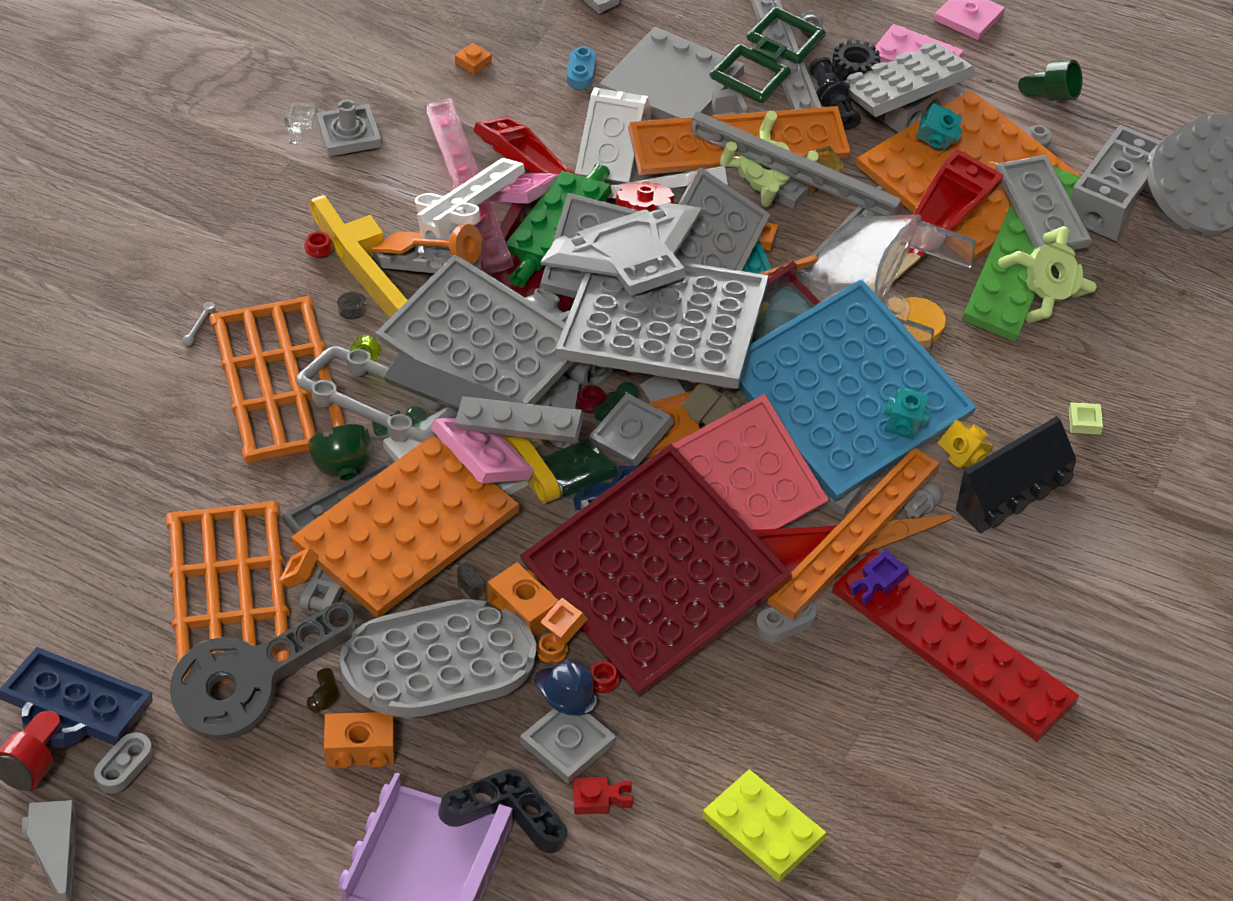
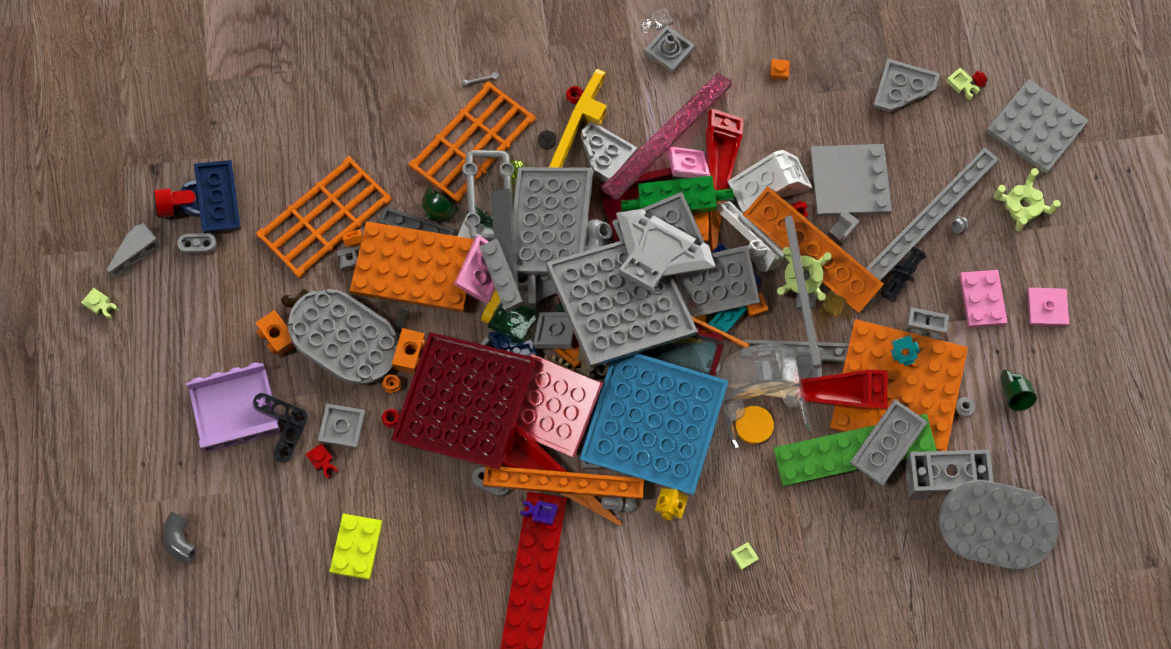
camera: 55 degrees right, 20 degrees up
(249, 670) = (276, 261): dark grey beam -> none
(442, 214) = (624, 143): white piece -> none
(464, 242) = (603, 167): orange piece -> none
(563, 620) = (403, 378): orange plate -> none
(567, 688) = (368, 406): dark blue piece -> none
(581, 68) = (819, 127): dark azure plate -> none
(643, 196) = (721, 231): plant -> none
(767, 54) = (902, 219): dark green bar -> none
(849, 54) = (939, 279): black tyre -> none
(906, 412) = (654, 468): teal brick -> none
(907, 78) = (934, 308): light grey plate -> none
(1016, 476) = (665, 543): black slope -> none
(1040, 276) = (836, 468): yellowish green plate -> none

